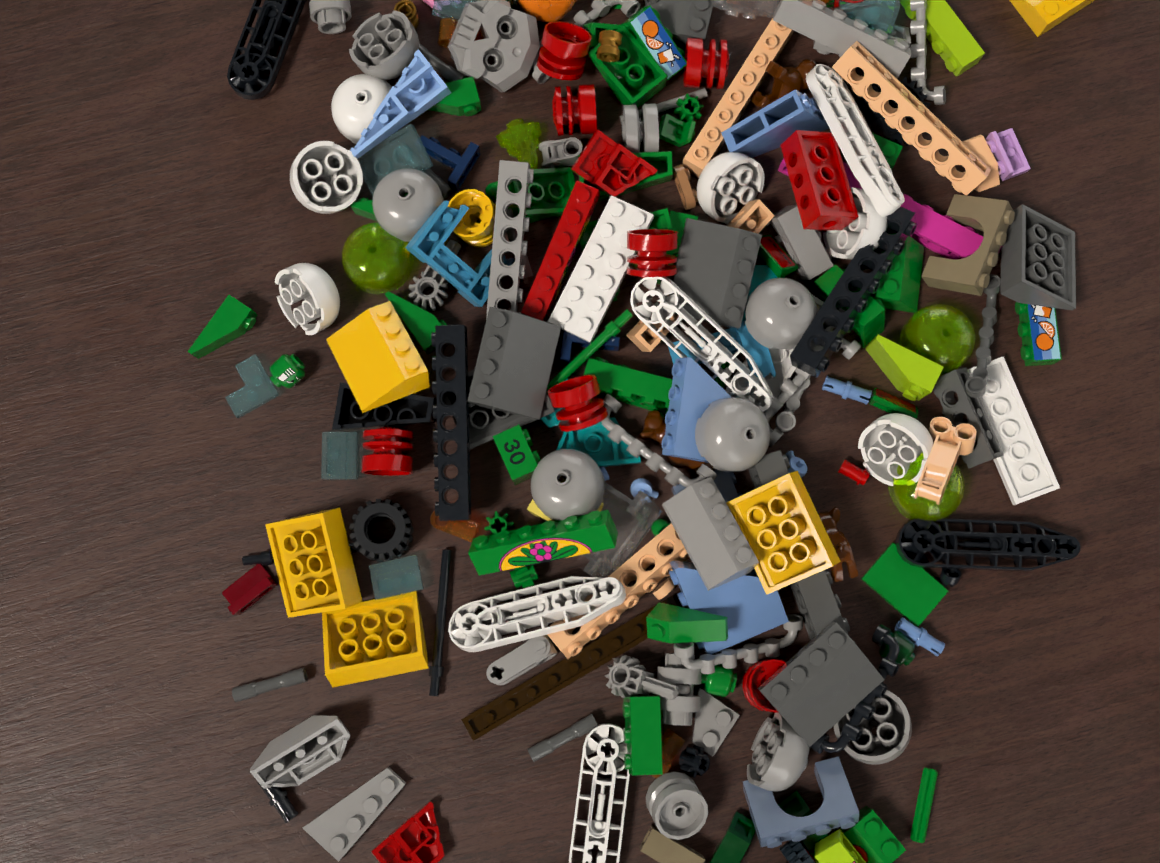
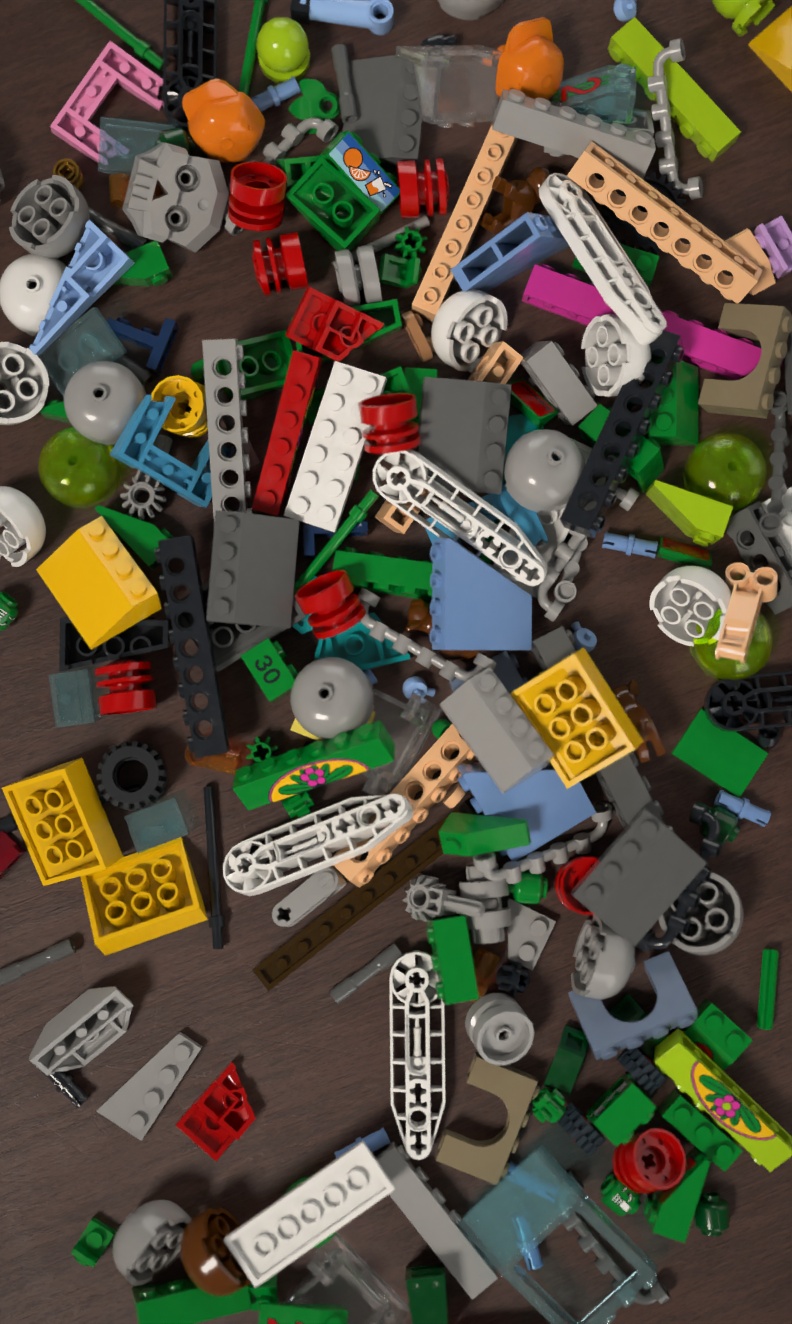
camera: 10 degrees left, 5 degrees up
(521, 141) = (224, 309): clear neon green rock -> none
(559, 153) = (269, 315): light grey piece -> none
(609, 43) = (308, 185): pearl gold wheel -> none
(732, 434) = (507, 616): light grey cylinder -> none
(819, 180) = (568, 312): red brick -> none
(854, 472) = (649, 636): red pin -> none

